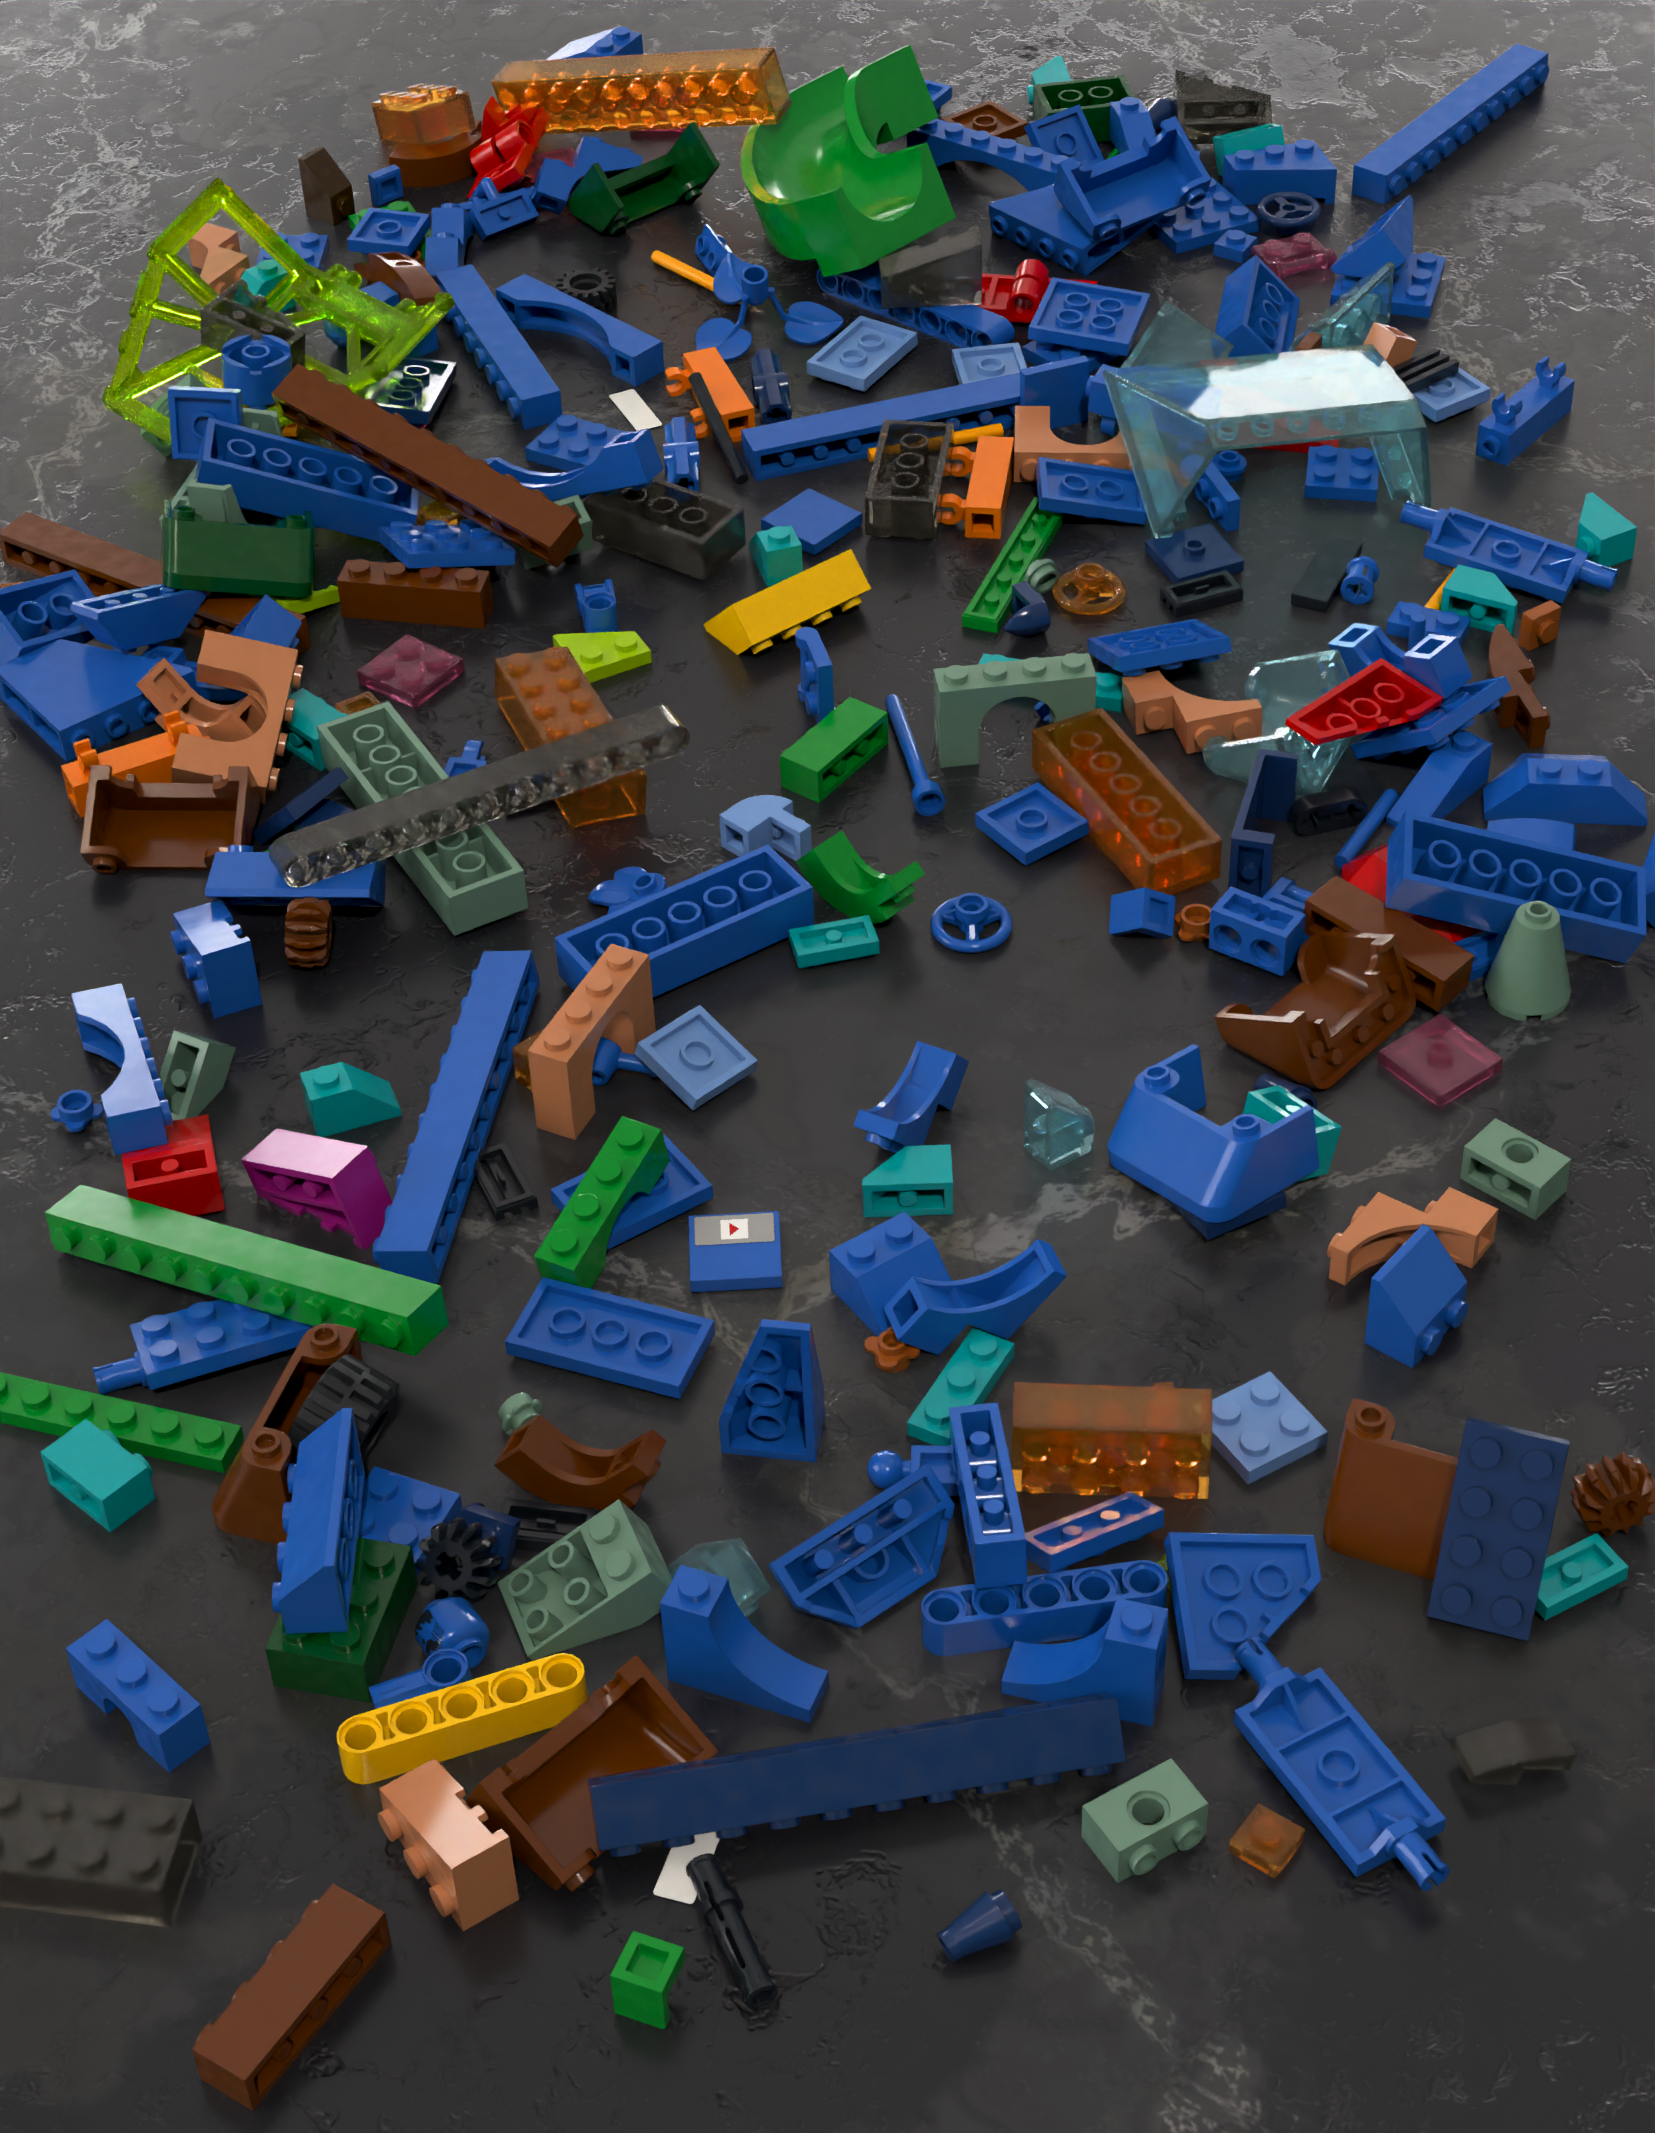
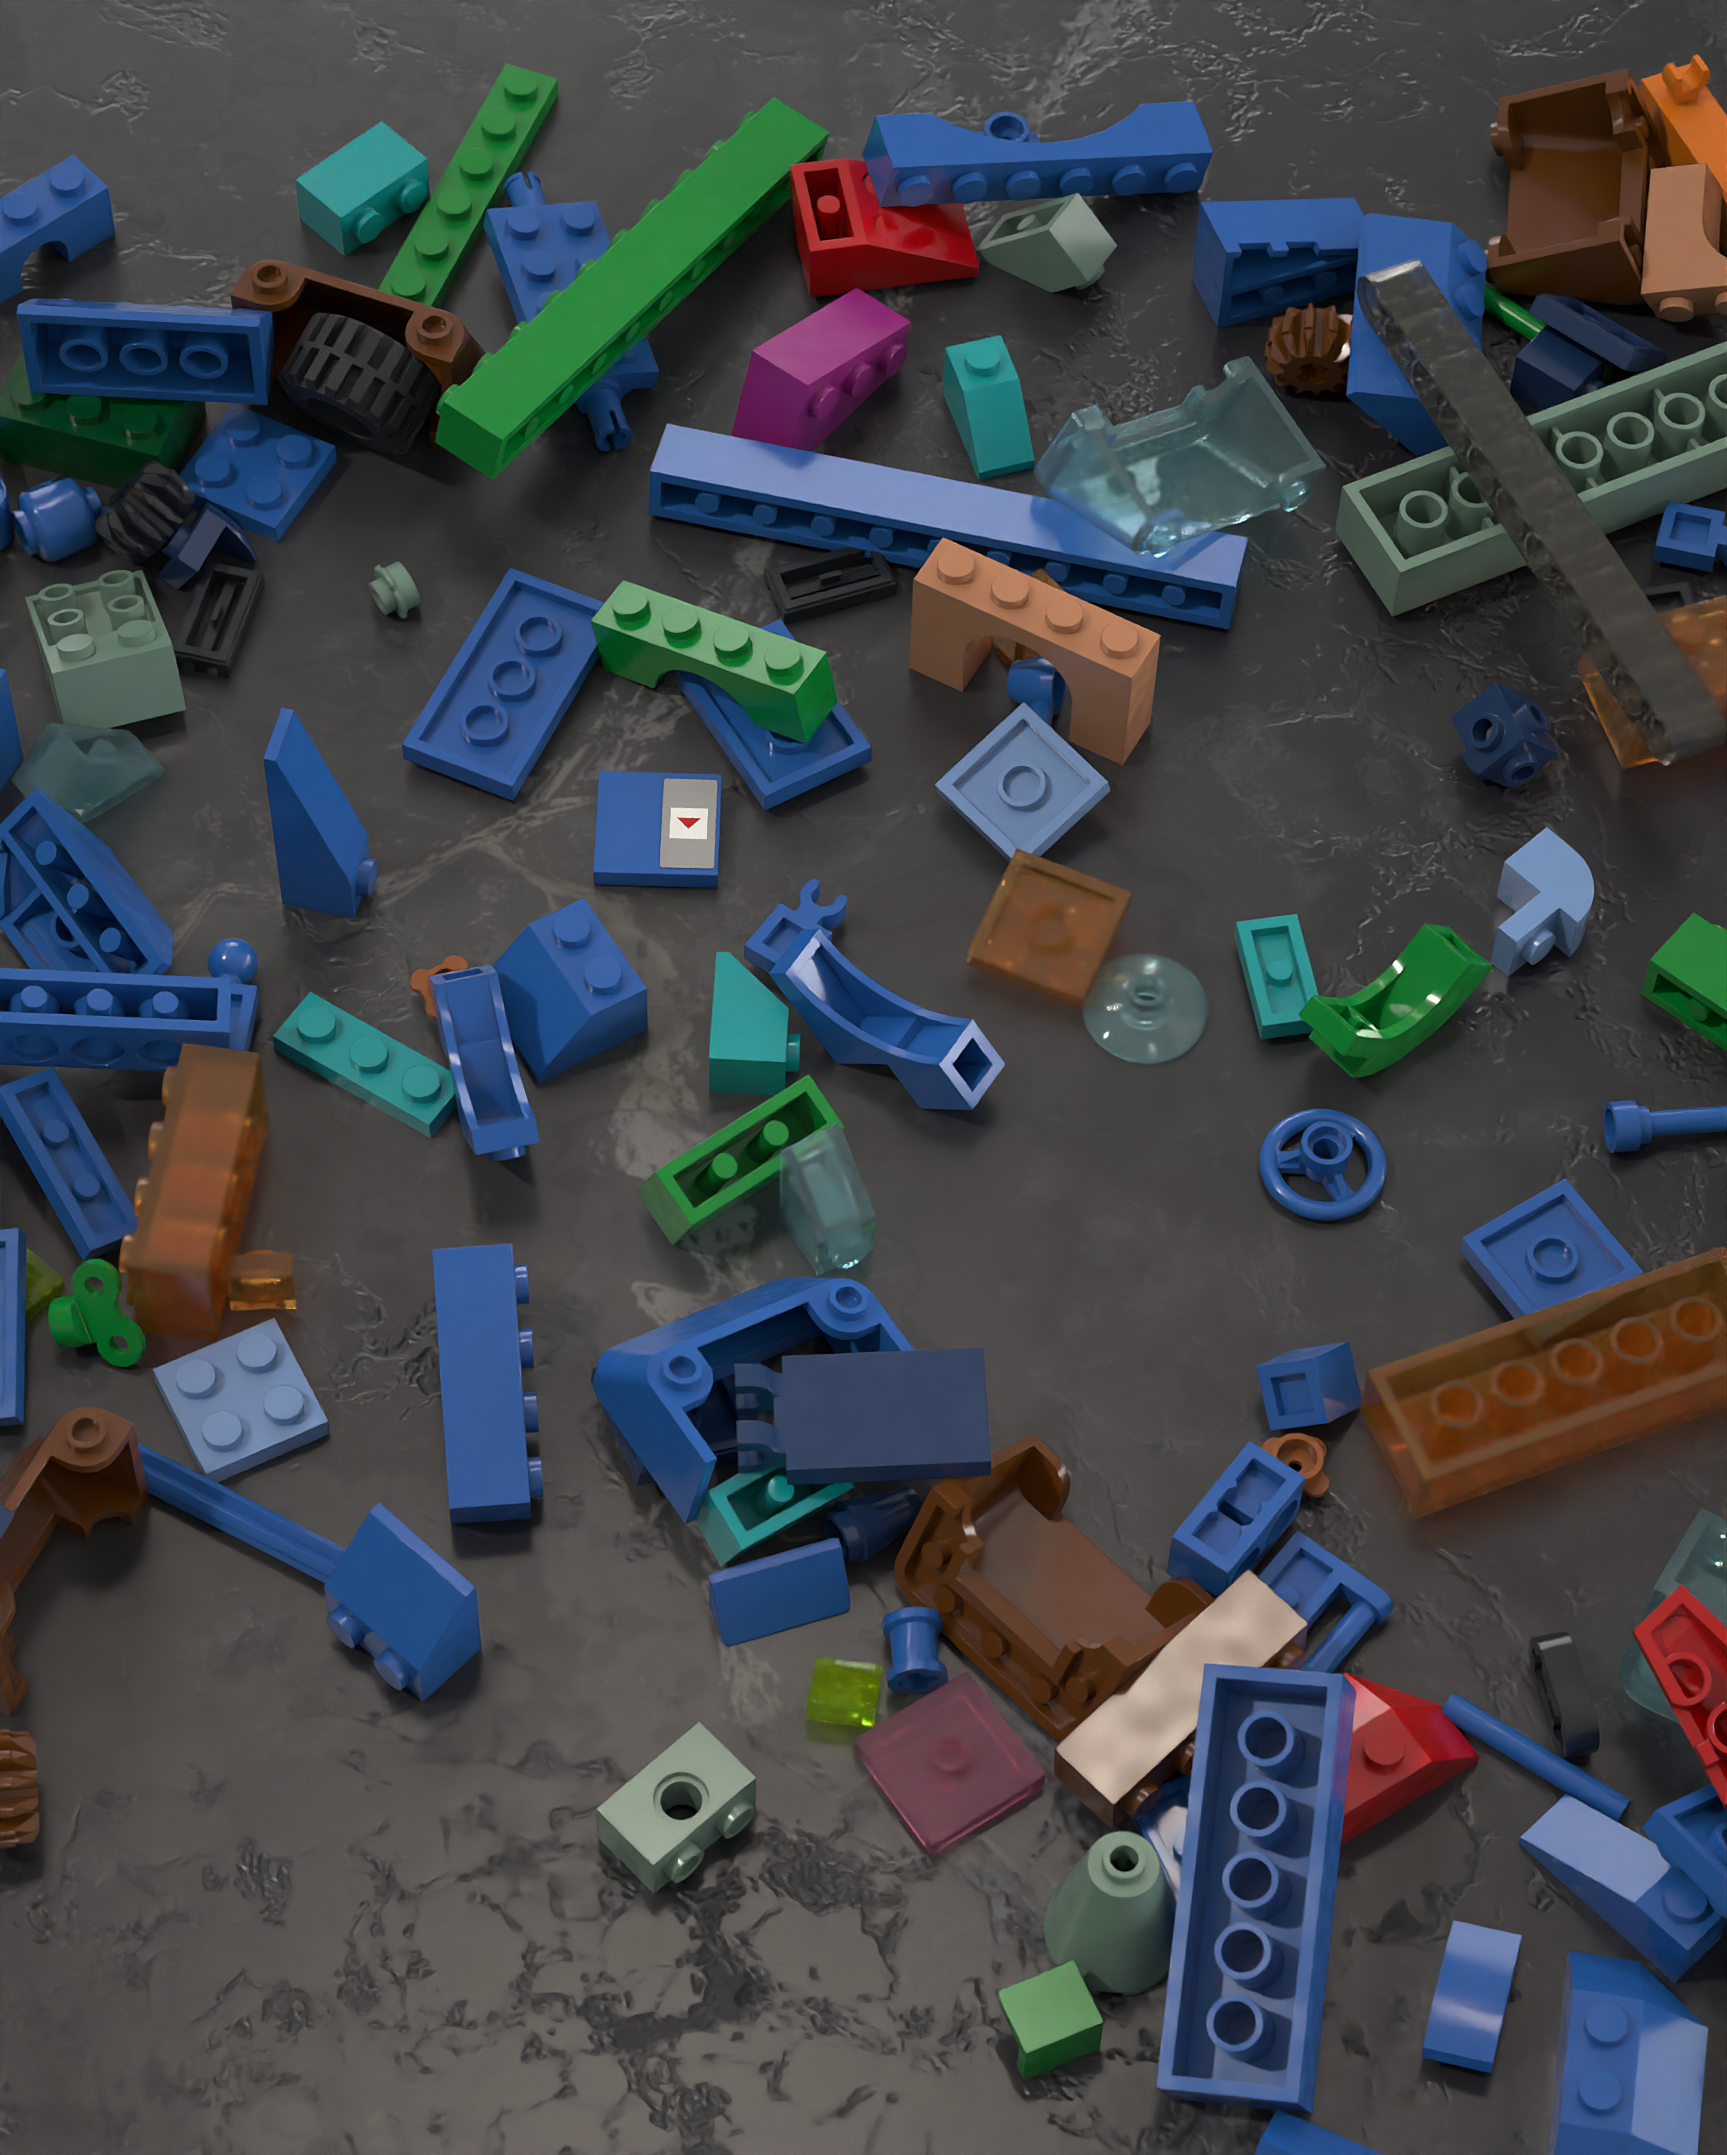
camera: 90 degrees right, 15 degrees up
(417, 983) = (1185, 467): none -> clear light blue windscreen
(575, 1474) = (282, 635): reddish brown arch -> none
(628, 886) = (1409, 734): blue plate -> none
(630, 849) = (1504, 736): none -> dark blue brick
(697, 921) = (1292, 785): blue brick -> none
(810, 1041) = (1049, 928): none -> clear orange plate
(828, 1170) = (785, 924): none -> blue plate
(857, 1010) = (1145, 1028): none -> clear light blue dish
(1029, 1167) = (734, 1160): none -> green brick
(1220, 1499) = (96, 1316): none -> green piece
(1228, 1281) = (483, 1383): none -> blue wedge
(1244, 1053) = (866, 1416): none -> dark blue tile
(1267, 796) = (1492, 1545): dark blue panel -> none
(1349, 1150) = (779, 1592): none -> blue slope
(1365, 1387) = (239, 1516): none -> blue axle
(1372, 1072) = (914, 1650): none -> blue bush
(1383, 1225) = (564, 1696): nougat arch -> none
(1408, 1104) = (844, 1692): none -> clear neon green tile
(1604, 991) = (1051, 2019): none -> green panel

